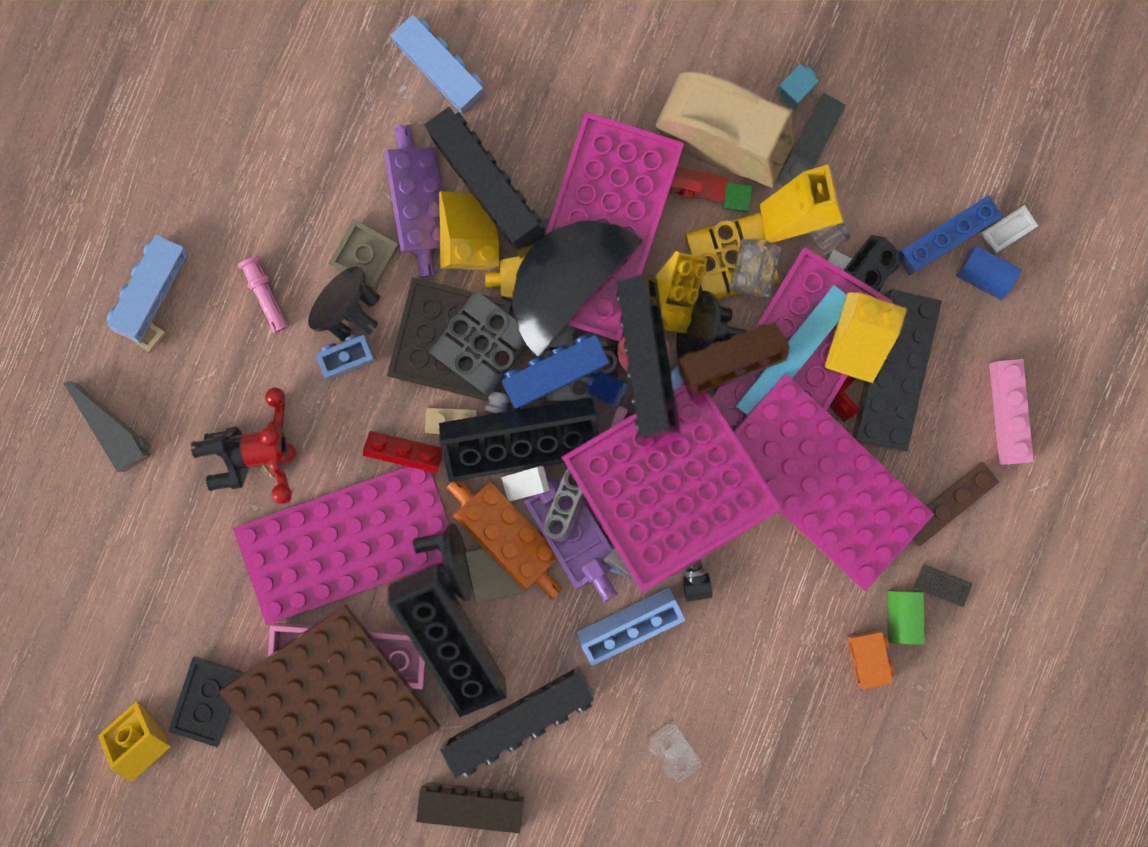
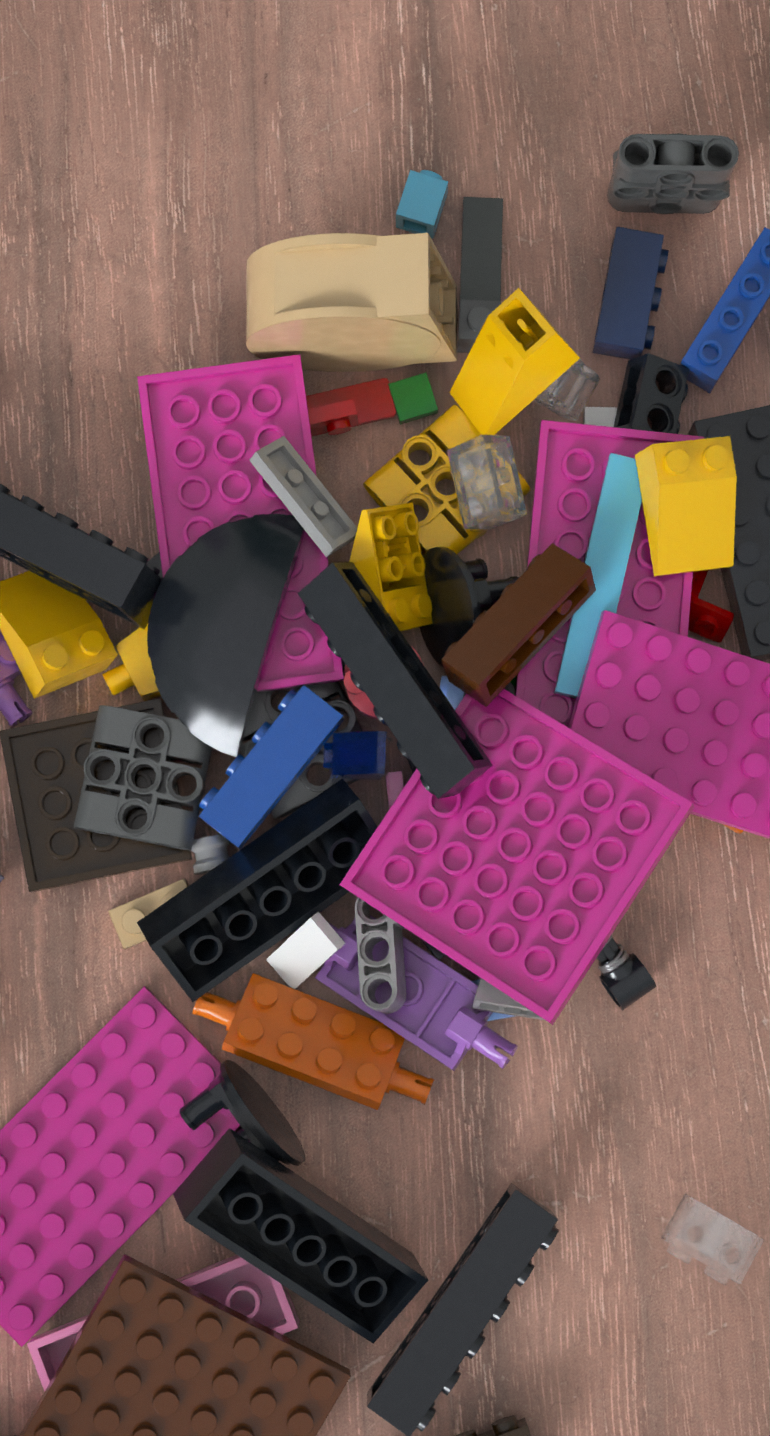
camera: 25 degrees left, 5 degrees down
(403, 452) = (105, 991): red plate -> none
(488, 577) = (318, 1116): dark tan tile -> none
(630, 626) = (558, 1086): light blue brick -> none
(647, 227) = (304, 496): none -> light grey plate
(891, 196) = (630, 294): none -> dark blue brick
(950, 138) = (672, 173): none -> dark grey connector

